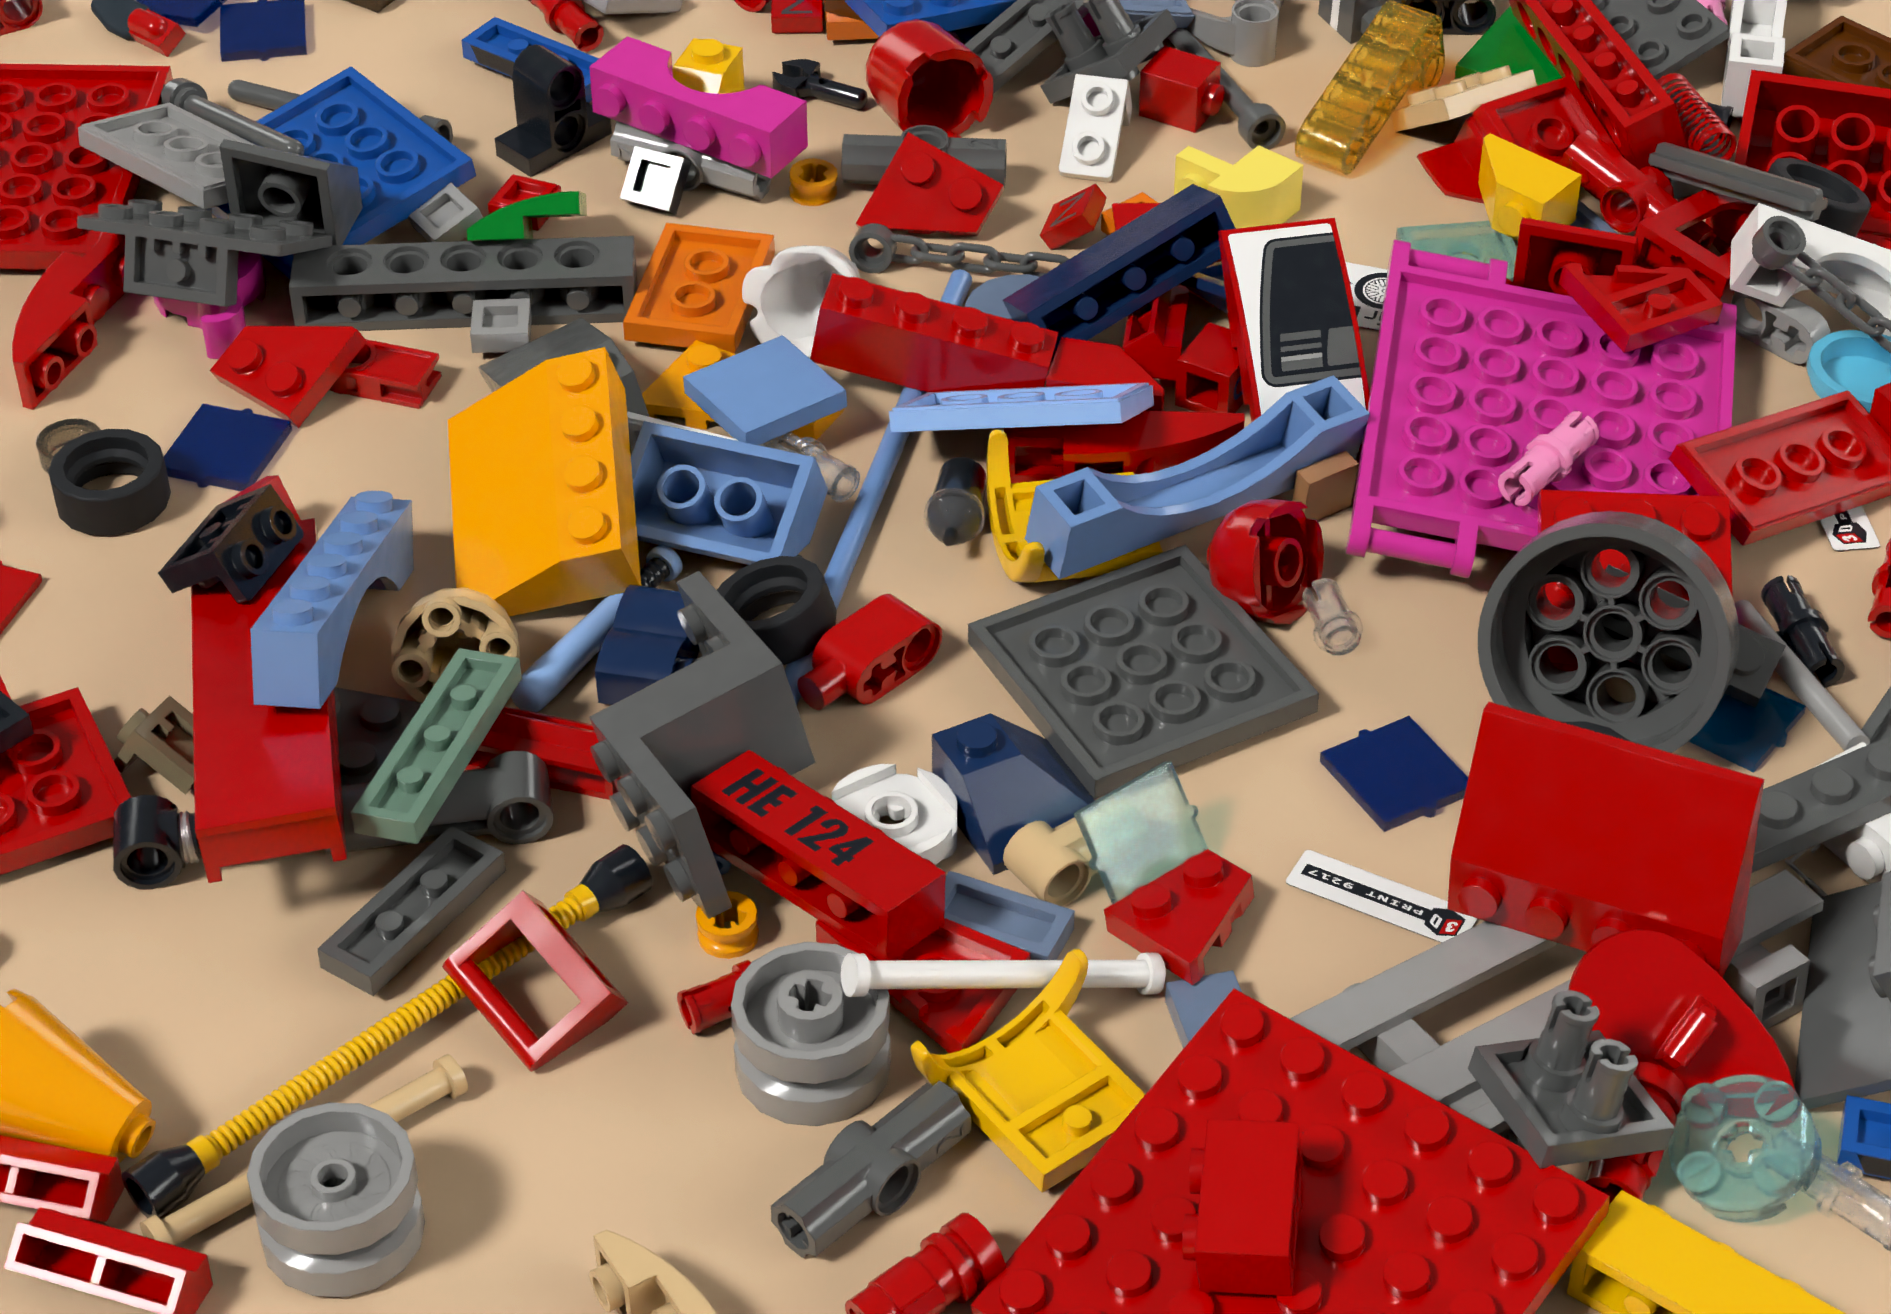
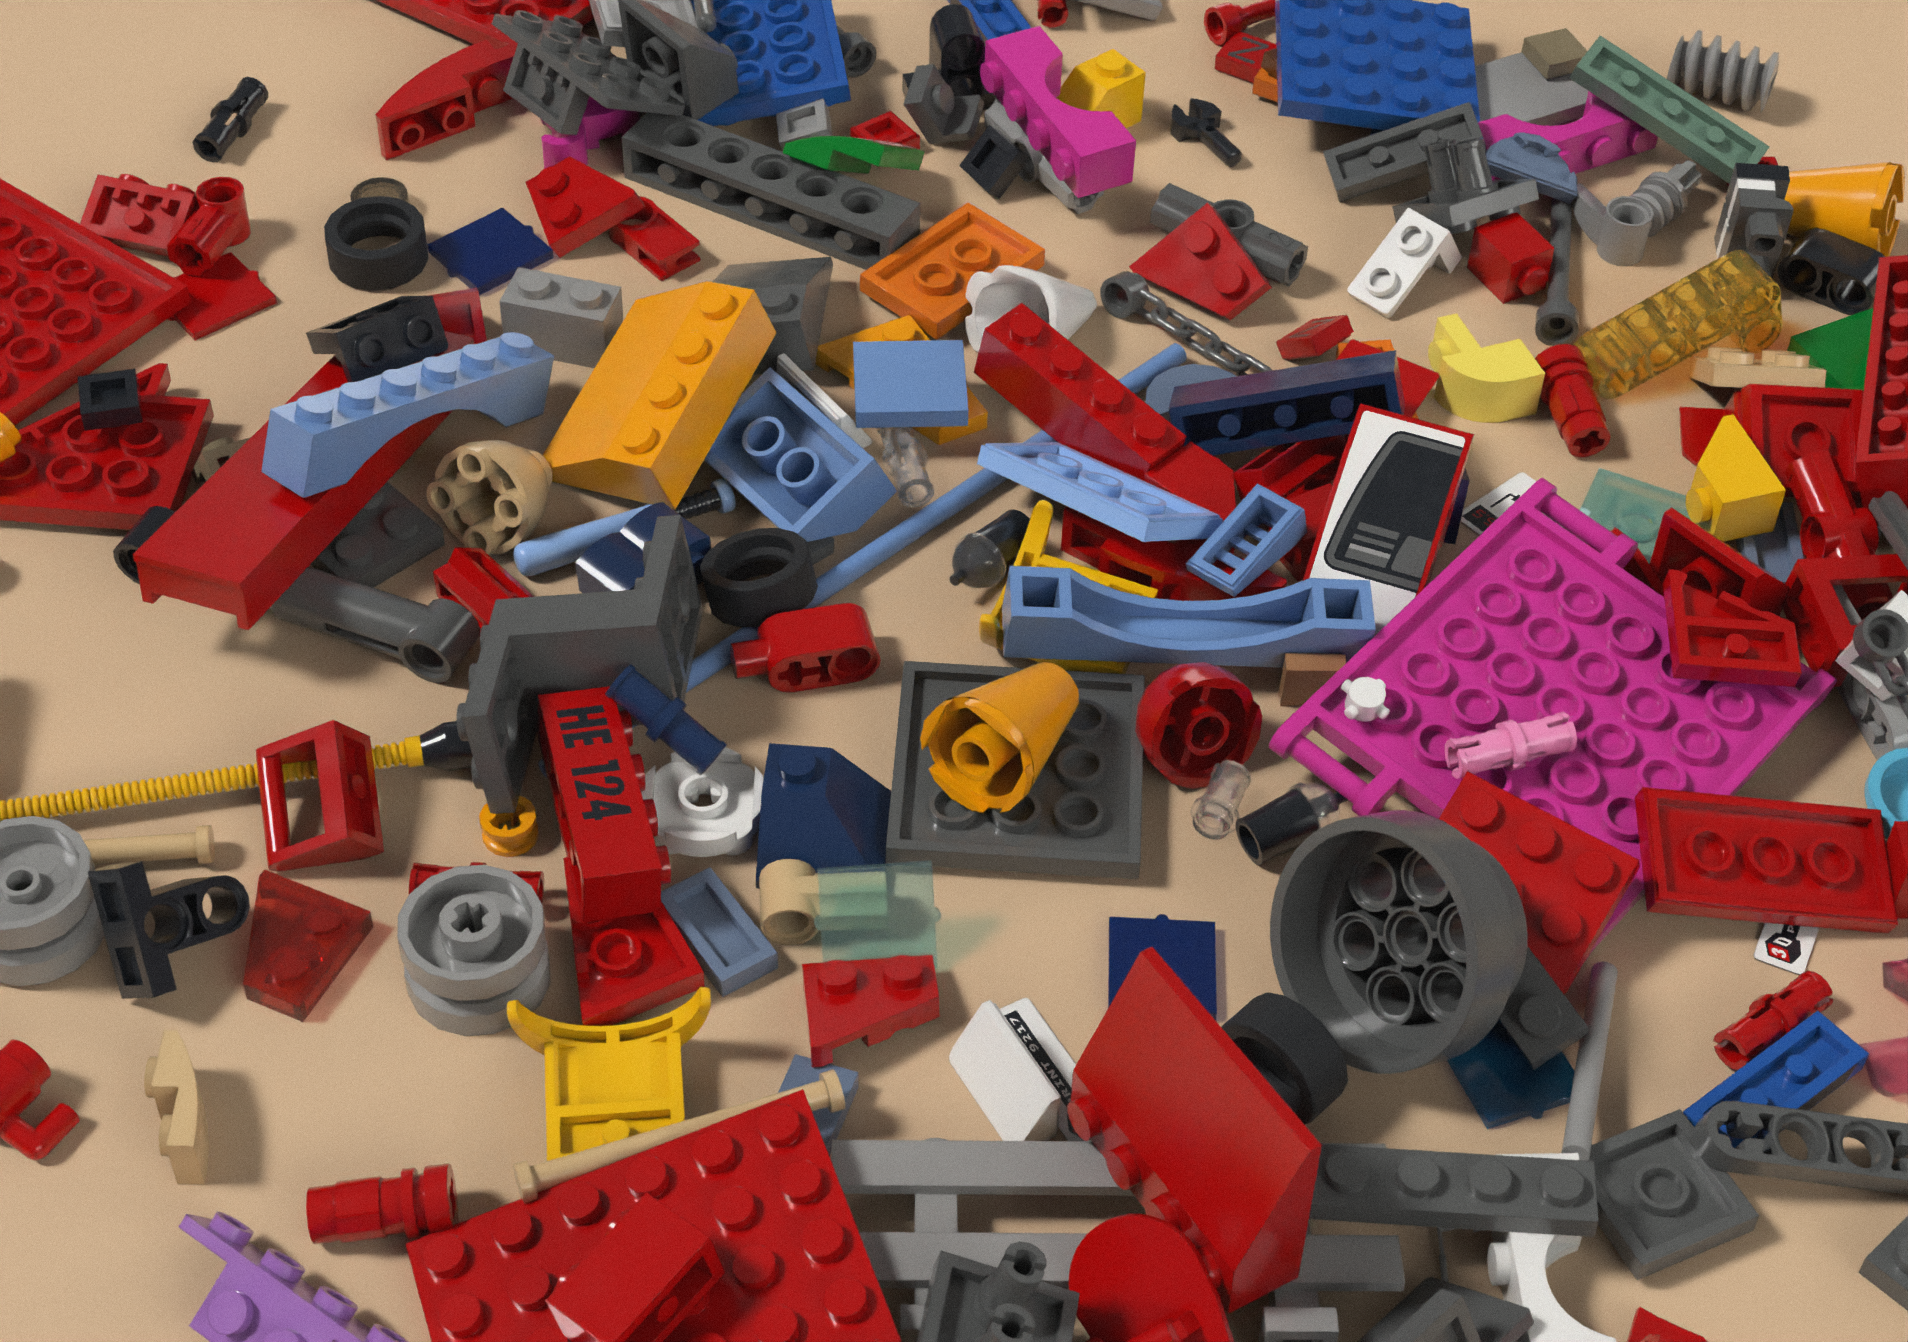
camera: 30 degrees right, 5 degrees up
(373, 457) = (562, 314): none -> light grey brick
(411, 910) = (290, 694): dark grey plate -> none
(436, 746) = (387, 569): sand green plate -> none
(491, 1153) = (179, 918): none -> black tile
(500, 325) = (769, 236): light grey plate -> none
(569, 156) = (938, 111): none -> dark grey bracket
(620, 1116) = (299, 944): none -> clear red wing
(813, 182) = (1128, 204): light orange bush -> none
(823, 755) = (665, 719): none -> dark blue pin
(861, 975) = (647, 978): white bar -> none
(871, 1169) = (430, 1087): dark grey piece -> none
(928, 78) = (1283, 164): red cylinder -> none
(1047, 1188) = (539, 1177): none -> tan bar
(1133, 641) = (999, 736): none -> light orange cone
(1195, 360) = (1258, 507): none -> medium blue slope
(1335, 183) = (1572, 400): none -> red axle
(1359, 912) = (1005, 1078): none -> white slope
(1406, 472) = (1365, 699): none -> white piece
(1406, 605) = (1287, 821): none -> black piece
(1802, 629) = (1641, 1020): black pin -> none

